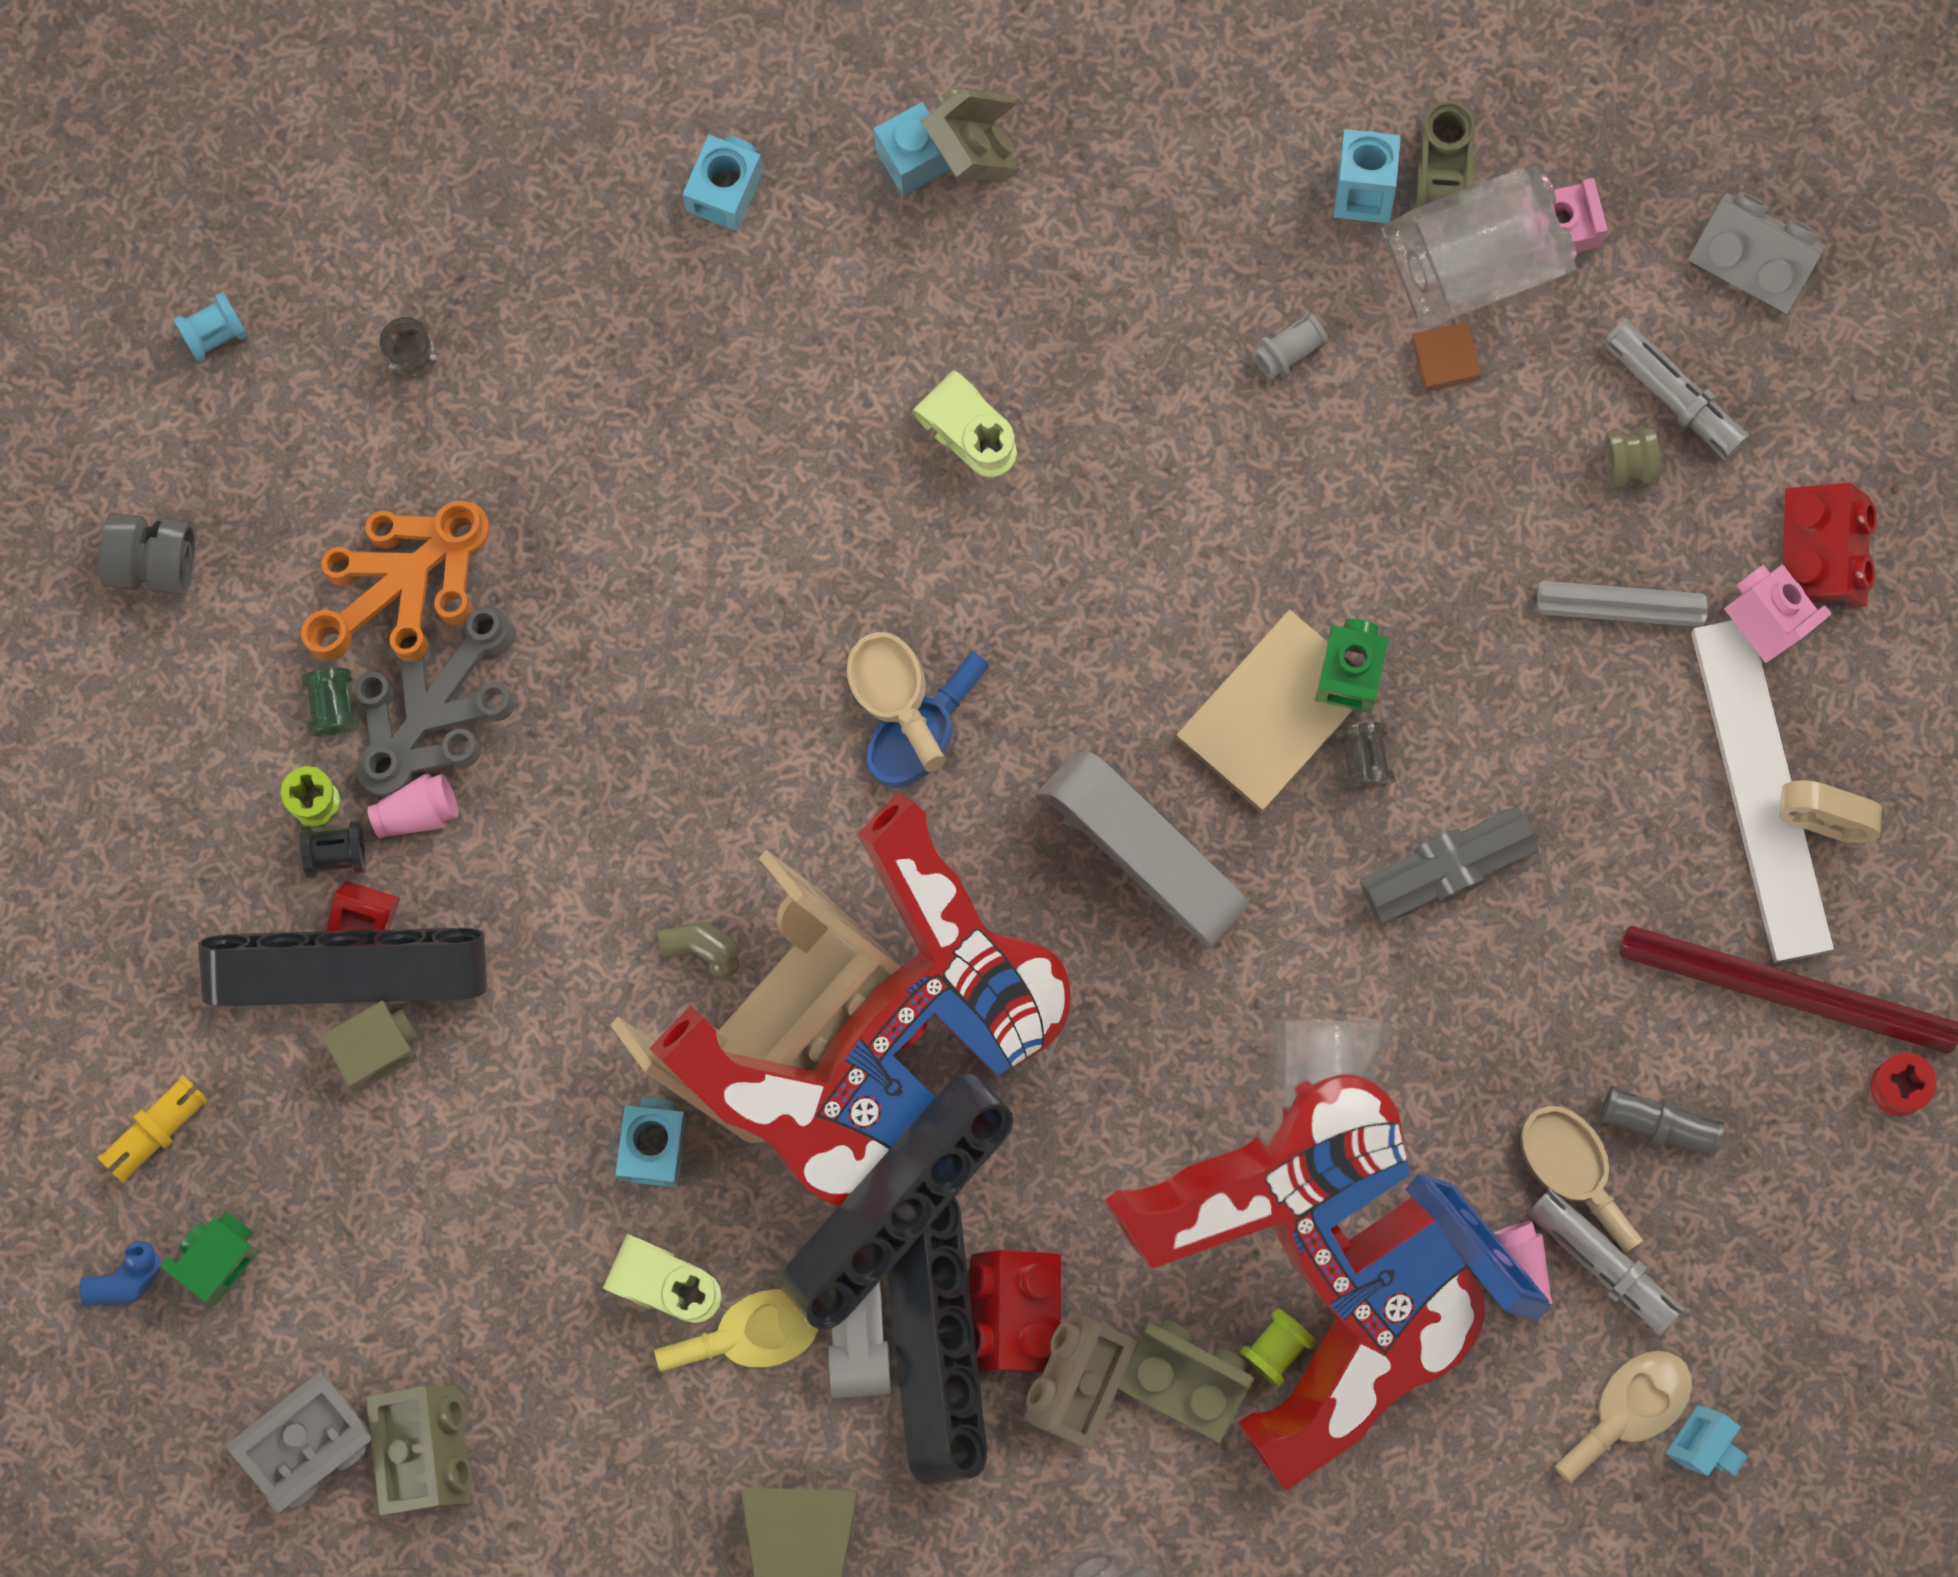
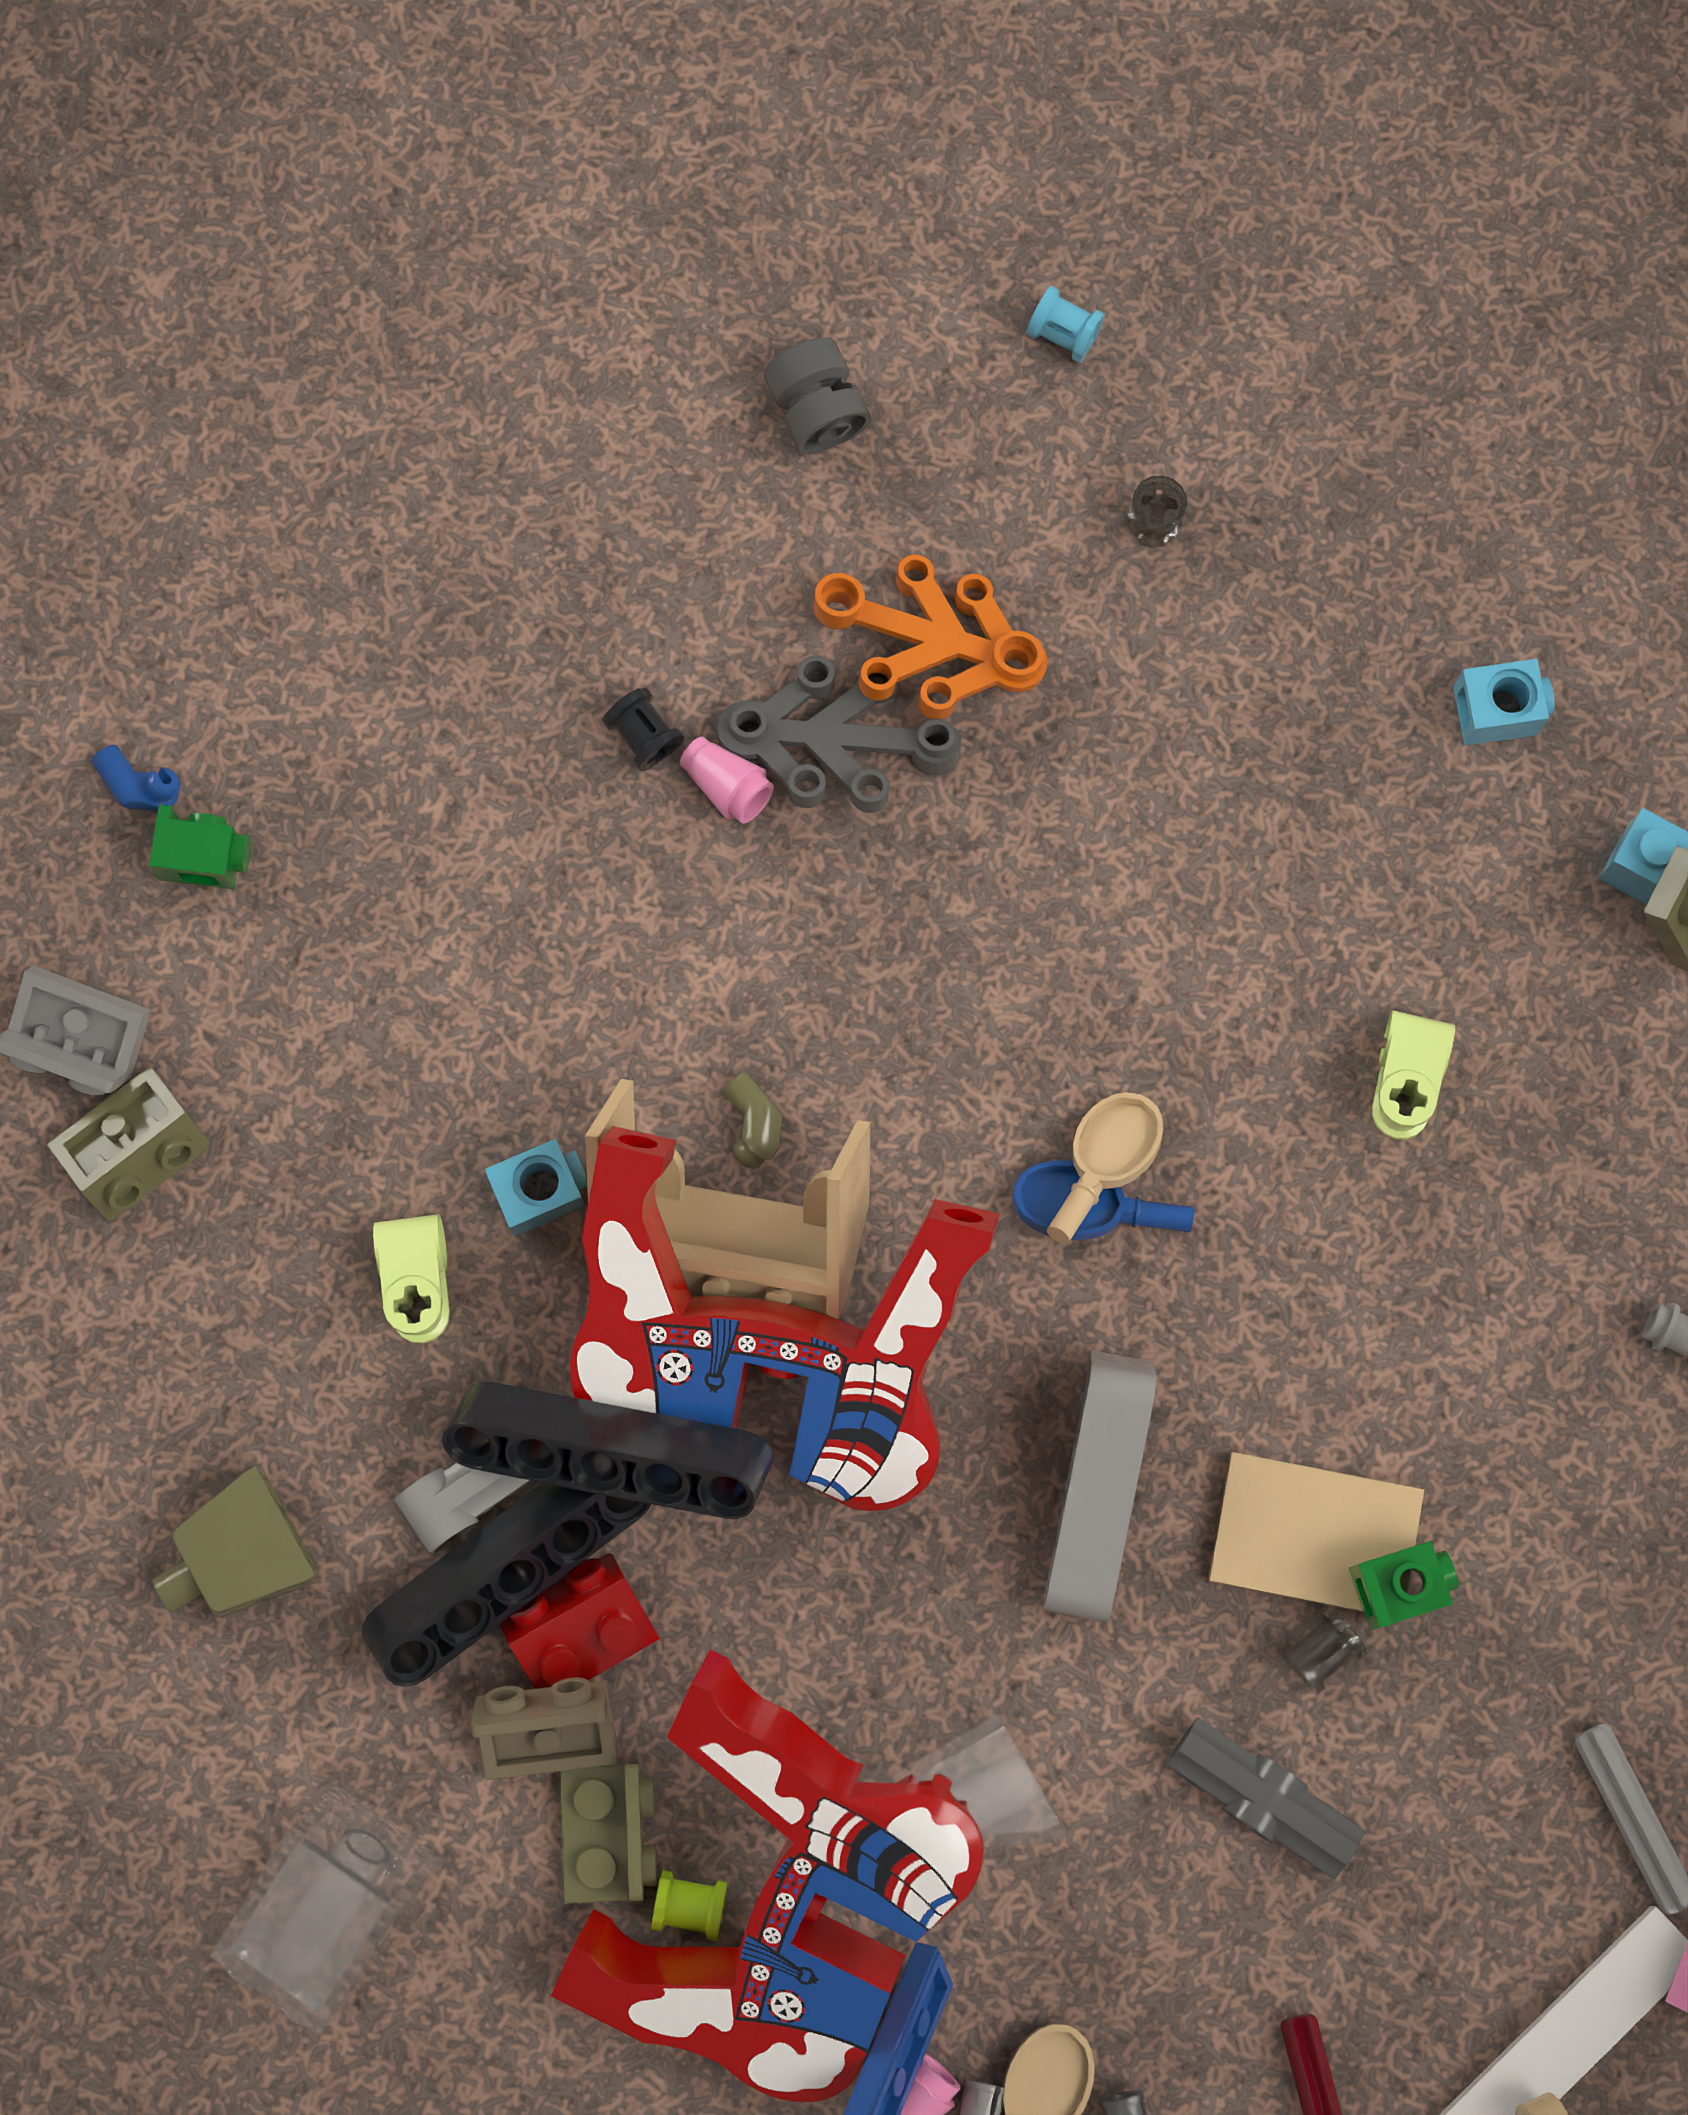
camera: 55 degrees right, 0 degrees up
(152, 1129) = (287, 725): yellow pin -> none
(297, 785) = (686, 661): lime bush -> none
(329, 702) = (779, 642): clear green bush -> none
(342, 966) = (537, 804): black beam -> none
(361, 909) = (594, 794): red slope -> none
(372, 1045) = (479, 873): olive brick -> none
(753, 1333) = (413, 1386): light yellow piece -> none

